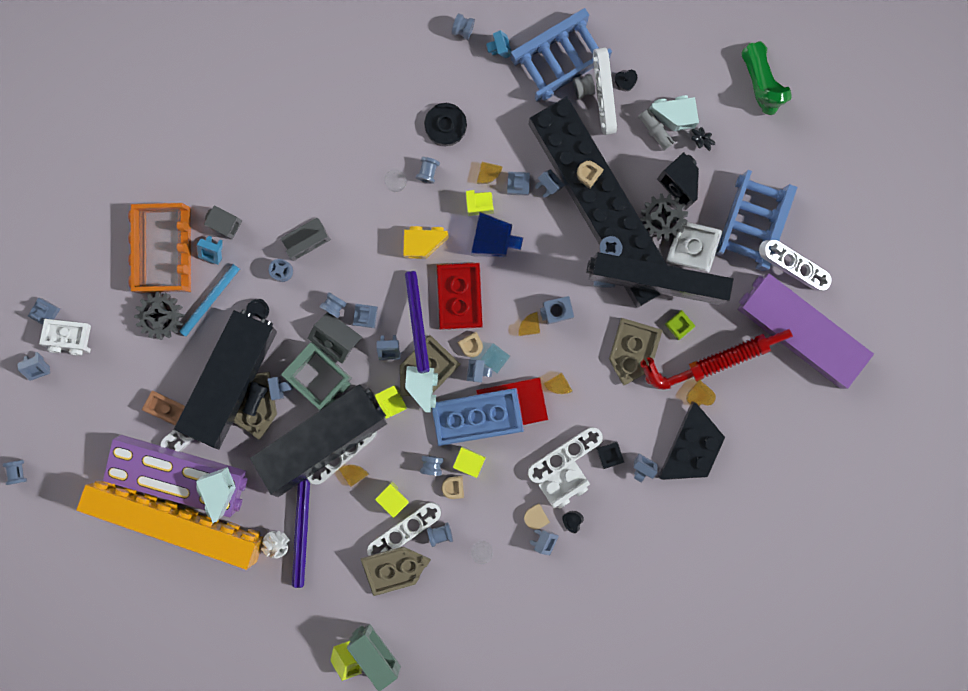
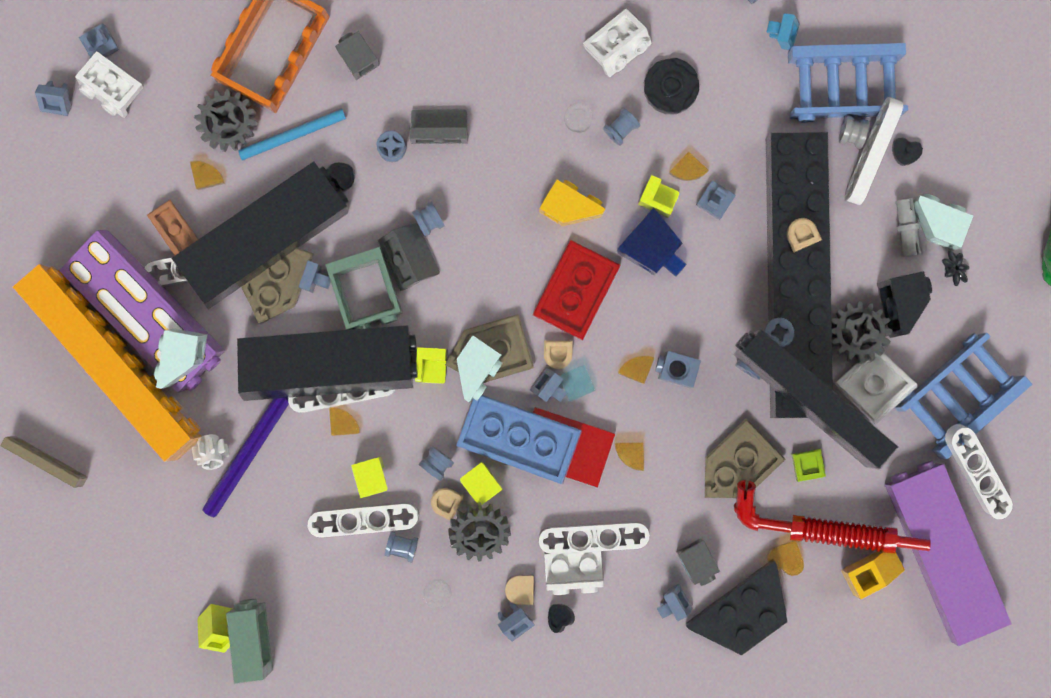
camera: 30 degrees right, 0 degrees up
(167, 360) = (205, 175): none -> clear yellow tile
(167, 615) = (44, 461): none -> dark tan tile
(210, 251) = (323, 79): dark azure tile -> none
(257, 392) = (286, 269): black pin -> none
(365, 316) = (457, 252): sand blue tile -> none
(388, 349) = (462, 304): sand blue tile -> none
(393, 115) = (618, 42): none -> white bracket
(393, 569) = (327, 556): dark tan tile -> none
(417, 322) = (512, 292): dark purple axle -> none
(486, 495) = (479, 532): none -> dark grey gear
(551, 182) = (753, 218): sand blue tile -> none
(610, 455) = (644, 567): black tile -> none
(644, 431) = (698, 562): none -> dark grey brick
(763, 373) = (872, 573): none -> yellow slope

